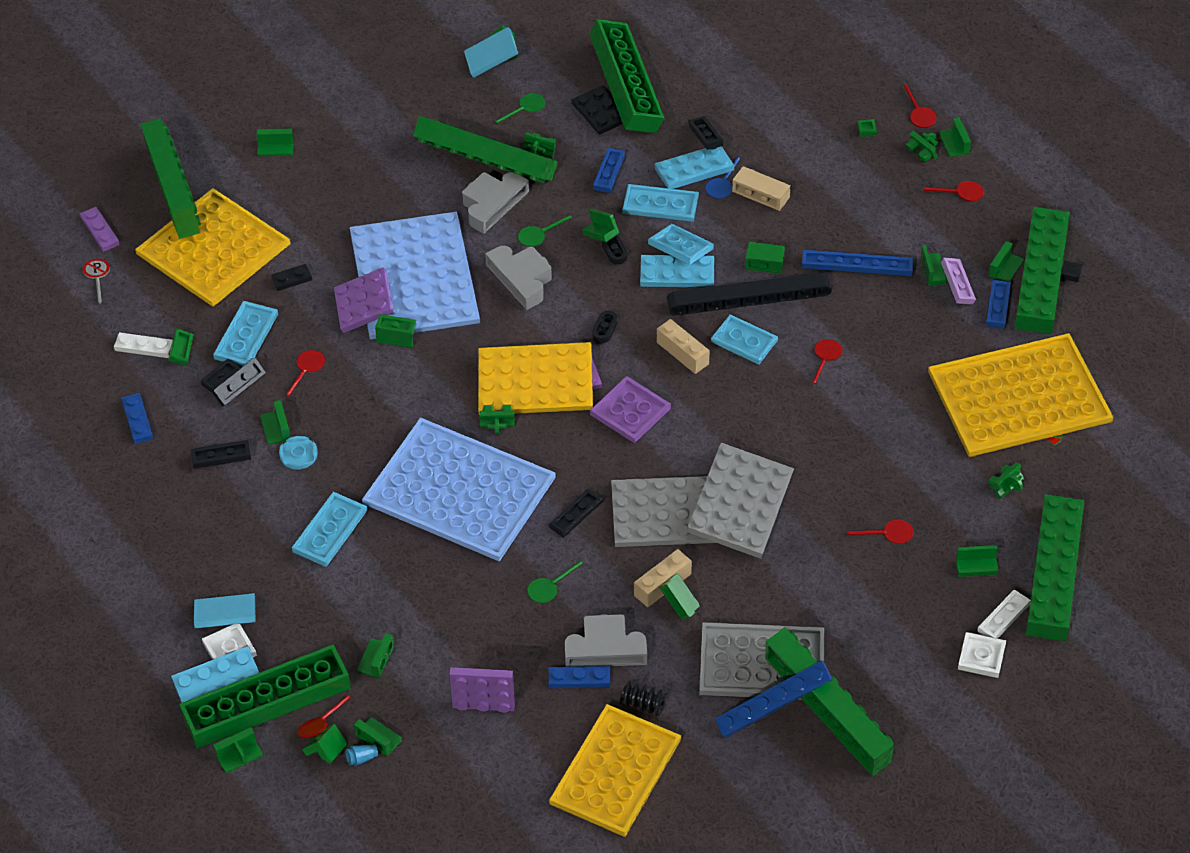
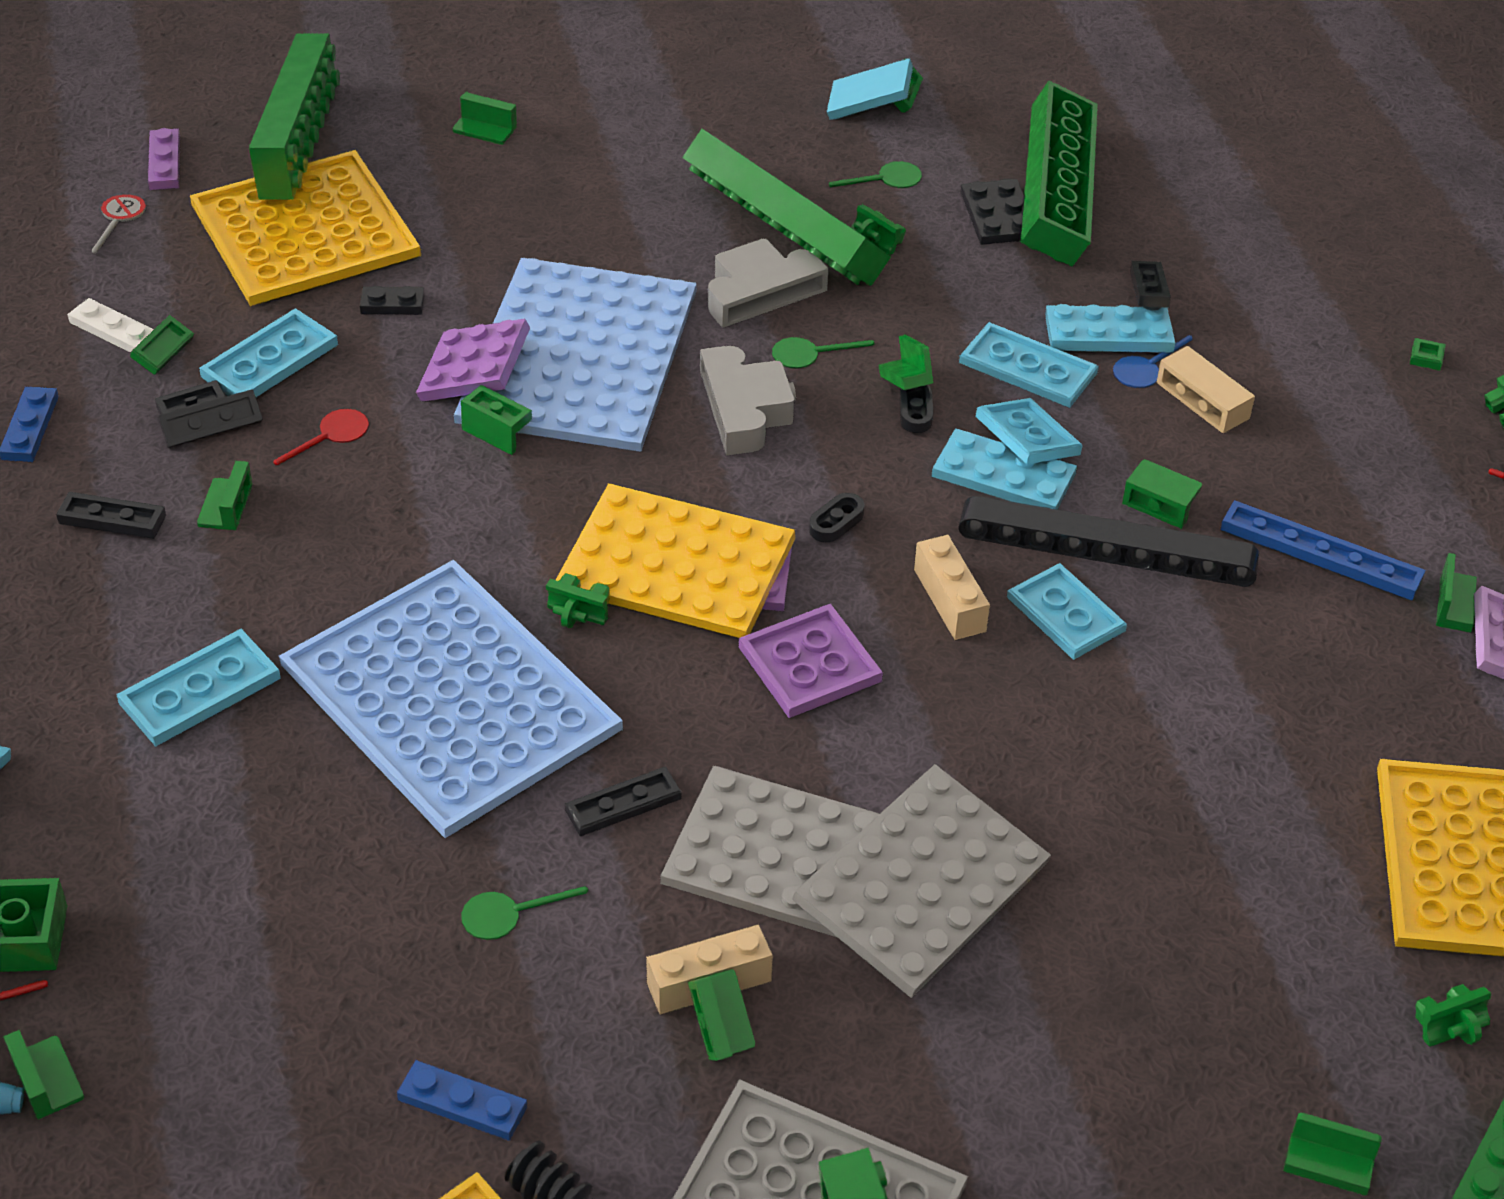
camera: 20 degrees right, 5 degrees down
(302, 456) = (236, 561): medium azure tile -> none
(376, 656) = (136, 929): green panel -> none
(482, 689) = (255, 1057): medium lavender plate -> none
(605, 644) = (539, 1054): light grey brick -> none
(609, 170) = (967, 294): blue plate -> none
(826, 350) = (1203, 674): red piece -> none
(895, 531) = (1194, 1037): red piece -> none

